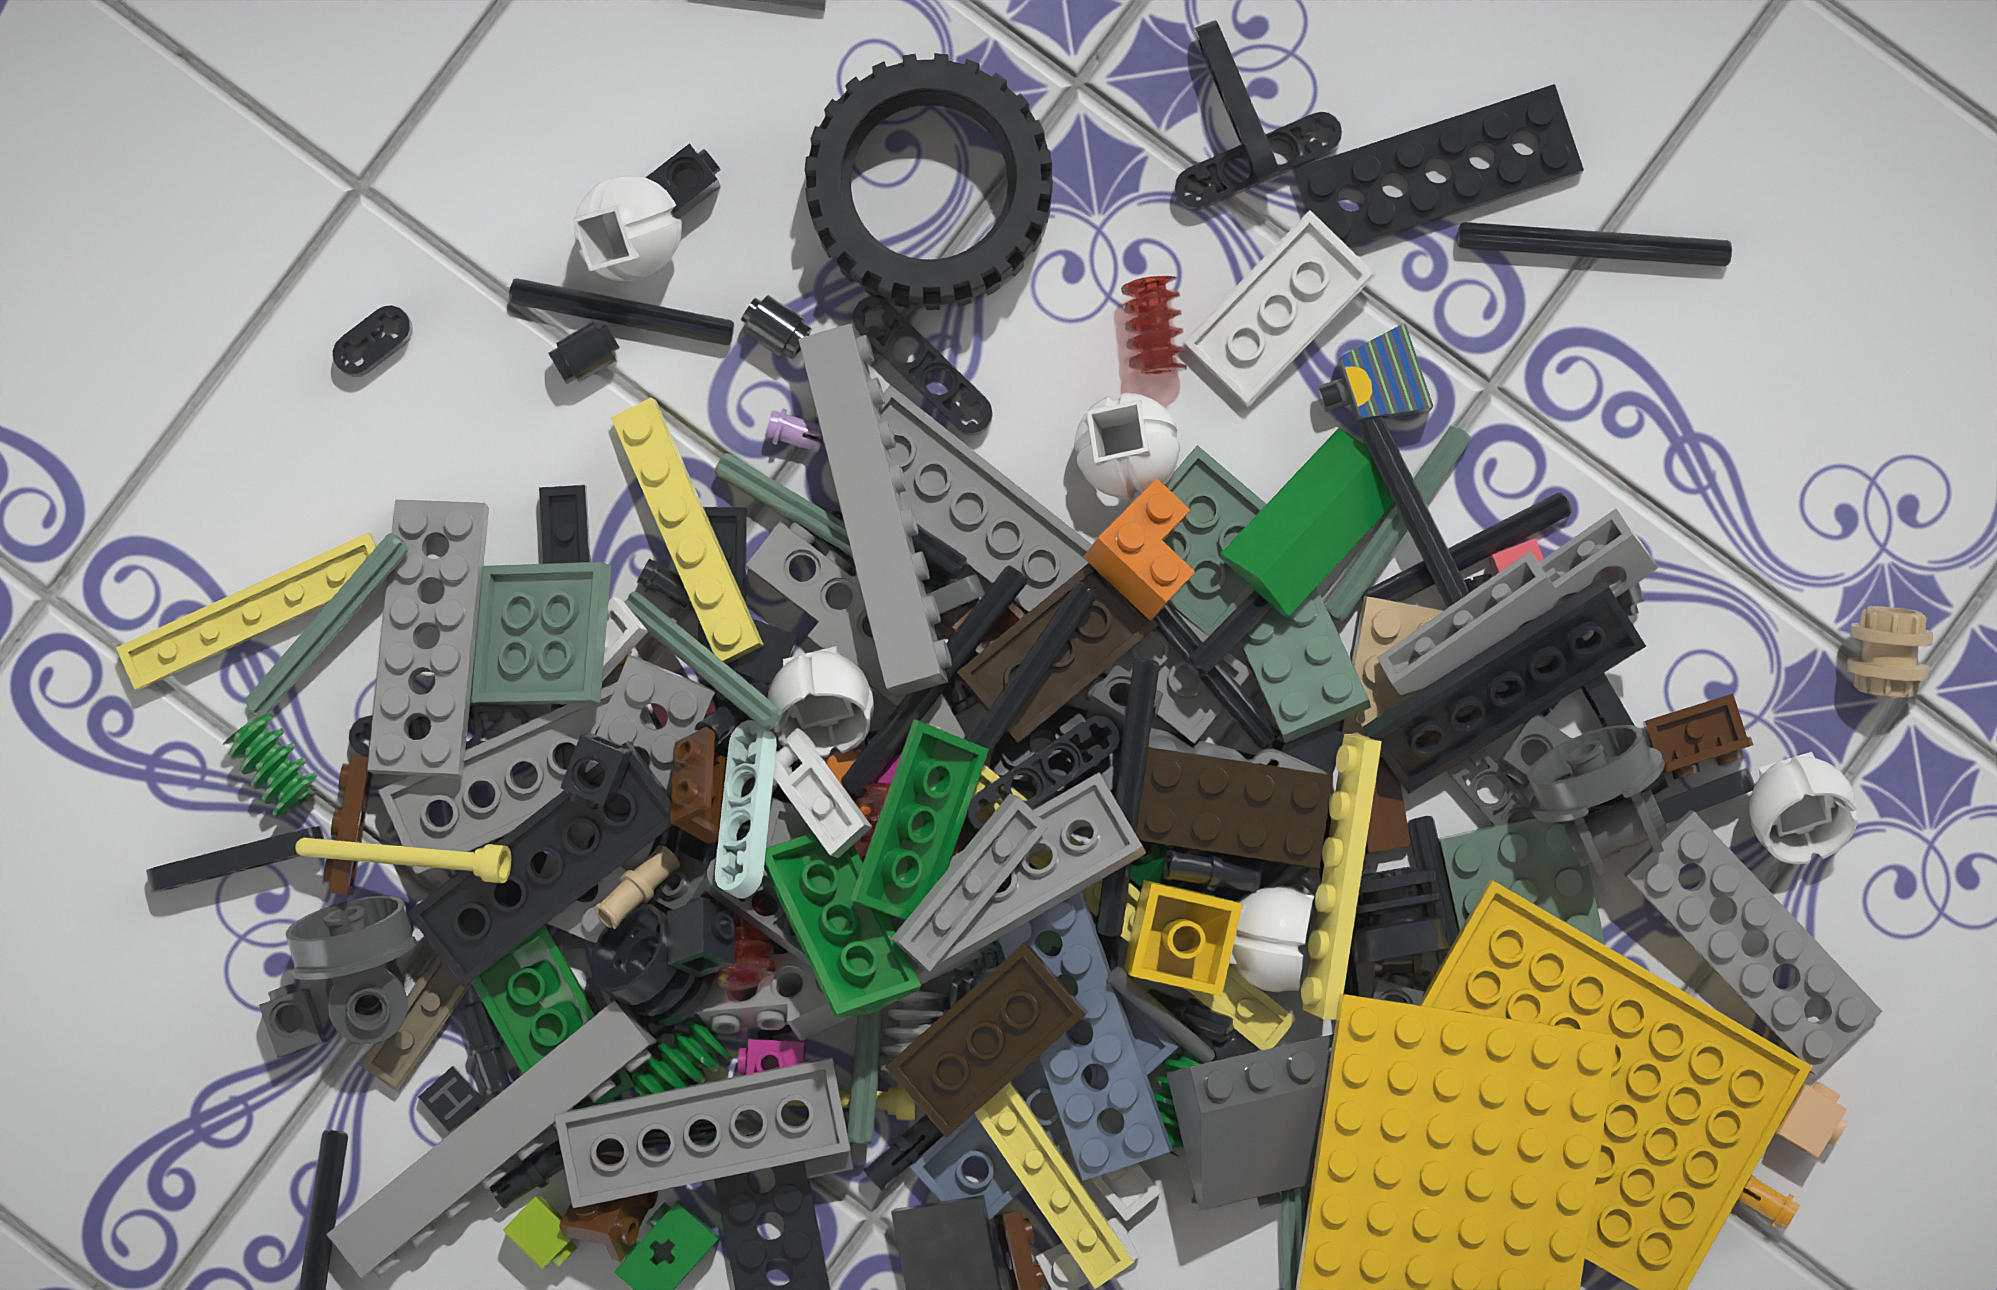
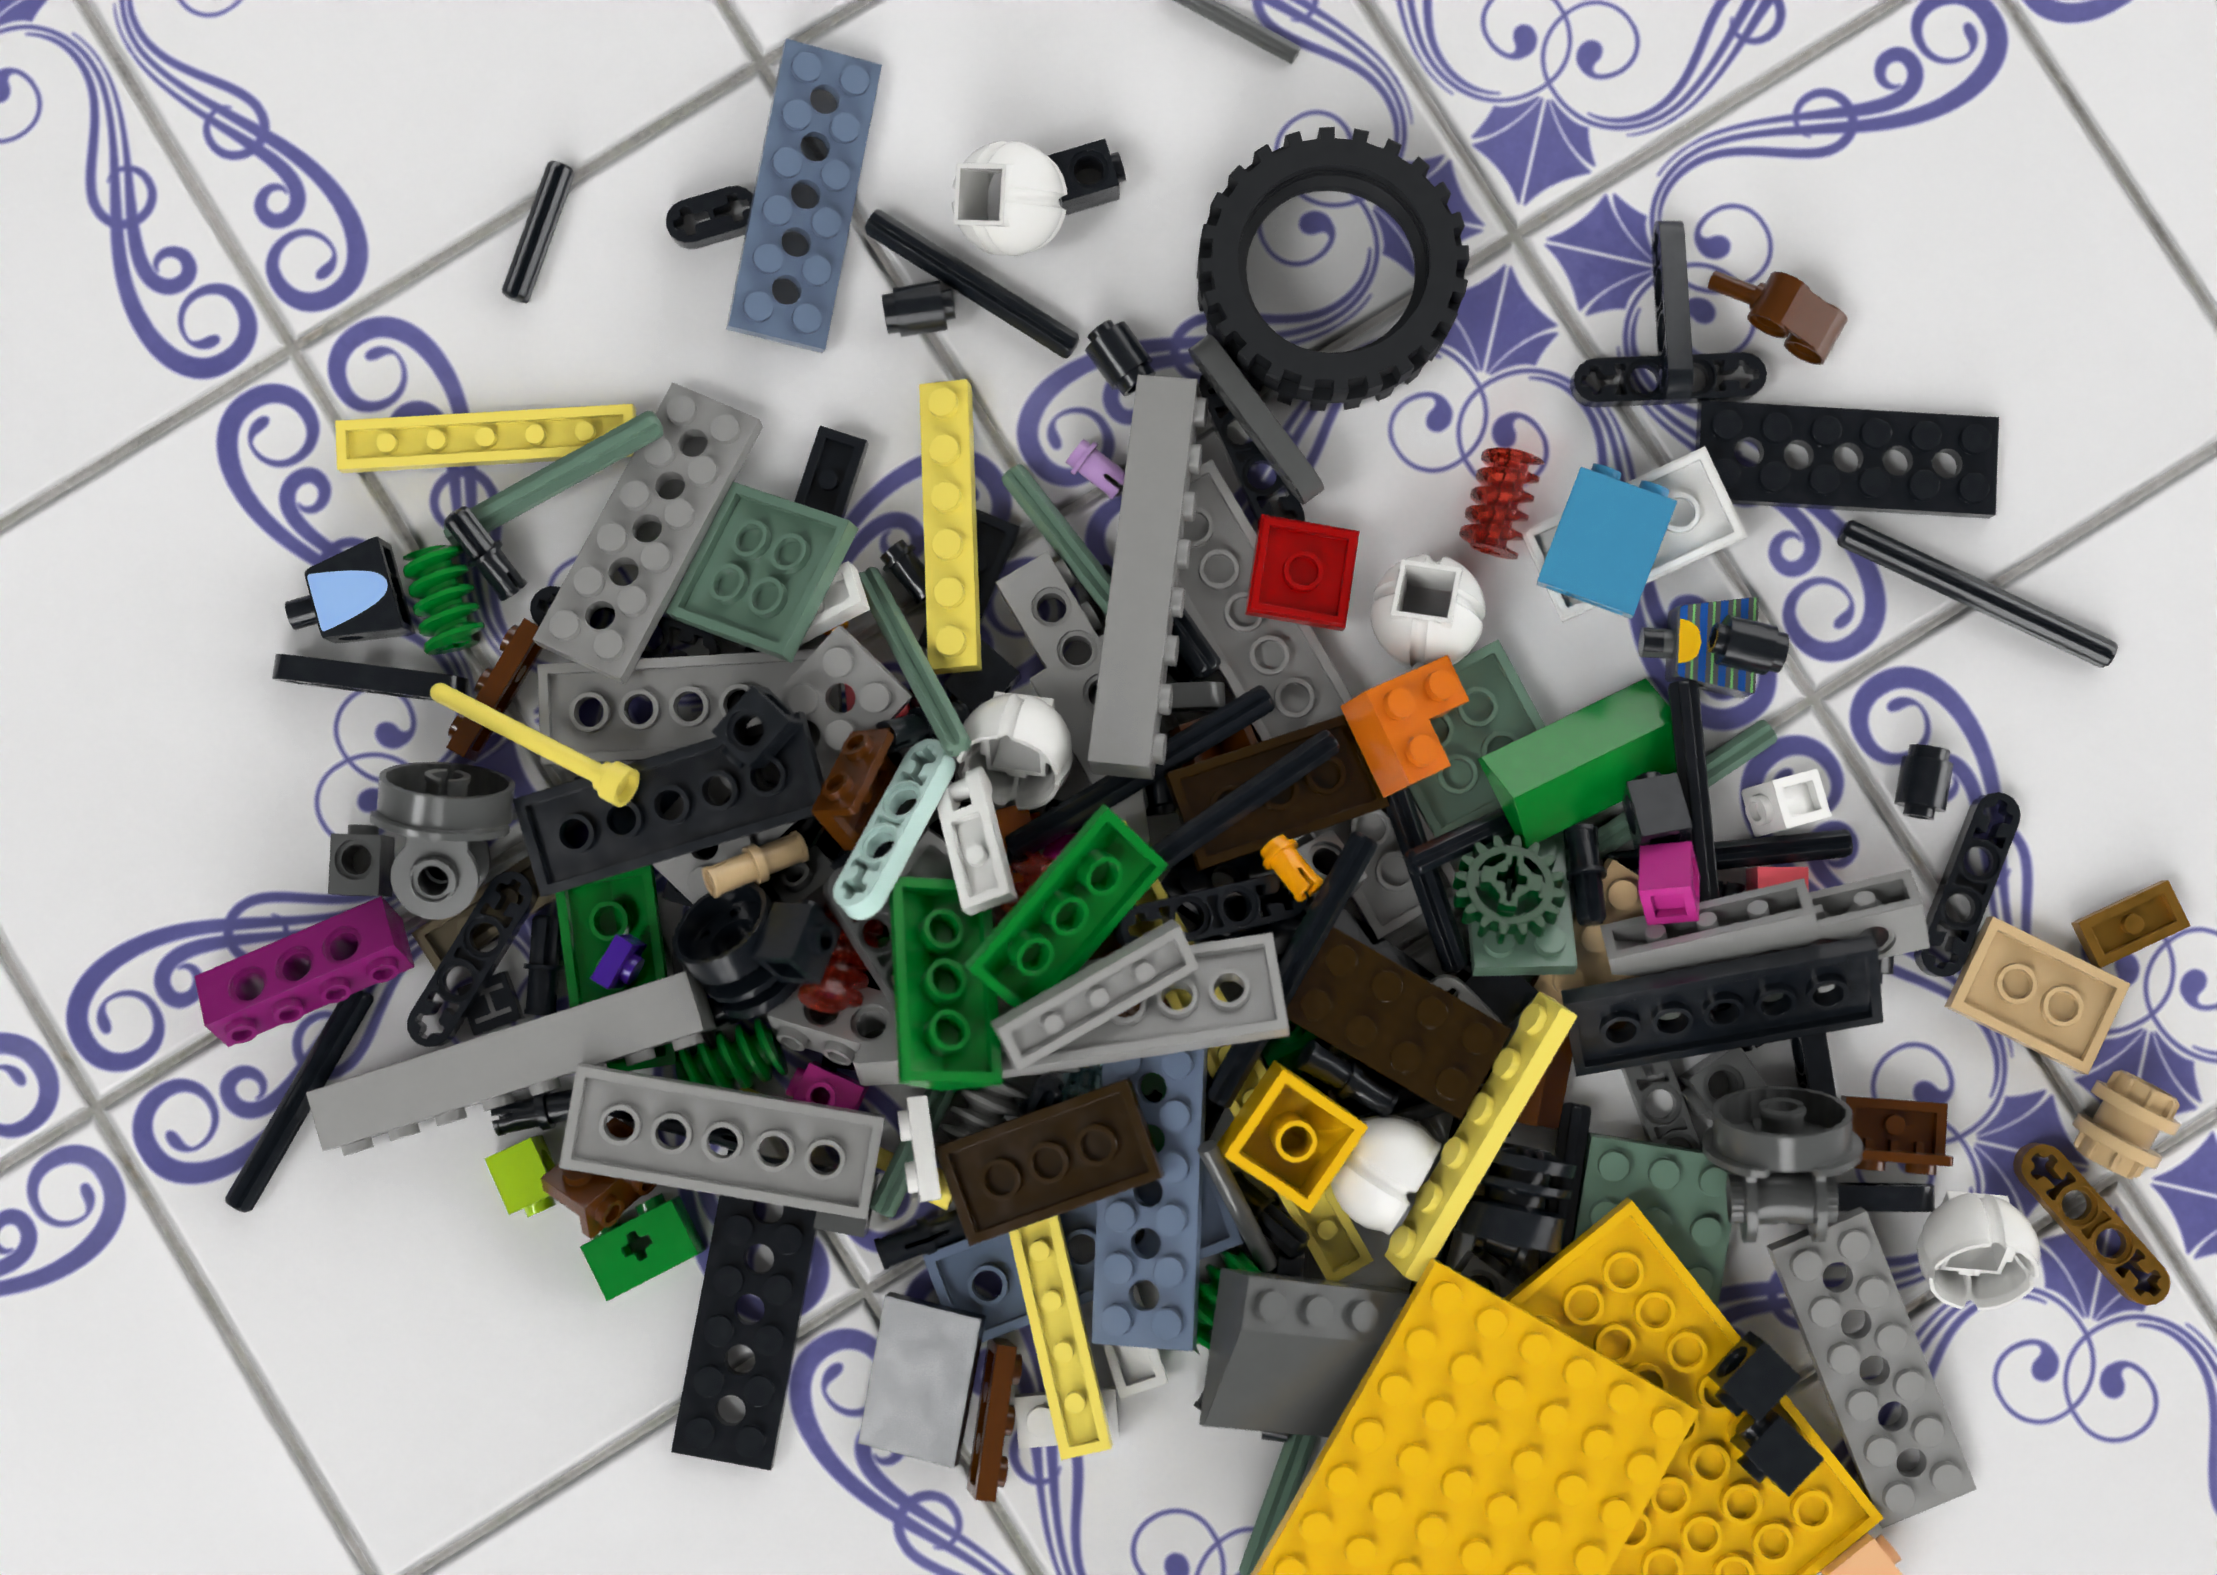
camera: 20 degrees right, 0 degrees up
(193, 794) = (354, 596): none -> black torso
(224, 413) = (538, 232): none -> black axle
(259, 1136) = (304, 972): none -> magenta brick
(293, 712) = (484, 553): none -> black axle
(416, 1064) = (466, 954): none -> black beam
(468, 270) = (773, 211): none -> sand blue plate
(553, 1016) = (620, 962): none -> dark purple plate
(882, 1091) = (916, 1127): none -> white plate
(915, 336) = (1256, 419): none -> dark grey beam
(1006, 453) = (1302, 572): none -> red tile
(1094, 711) = (1291, 867): none -> light orange pin
(1256, 324) = (1607, 540): none -> dark azure brick
(1308, 662) = (1484, 893): none -> dark green gear
(1335, 61) = (1789, 310): none -> reddish brown beam
(1348, 617) = (1586, 874): none -> black axle
(1388, 543) = (1656, 810): none -> black brick
(1410, 369) = (1748, 645): none -> black brick
(1419, 599) = (1669, 883): none -> dark pink brick
(1499, 489) = (1785, 803): none -> white bracket
(1609, 425) = (1924, 781): none -> black brick
(1650, 989) = (1752, 1377): none -> black brick
(1675, 498) = (1975, 888): none -> black beam
(1691, 1043) = (1774, 1451): none -> black brick
(1775, 570) = (2037, 995): none -> tan plate
(1832, 478) = (2130, 924): none -> pearl gold plate
(1898, 742) = (2091, 1223): none -> pearl gold beam

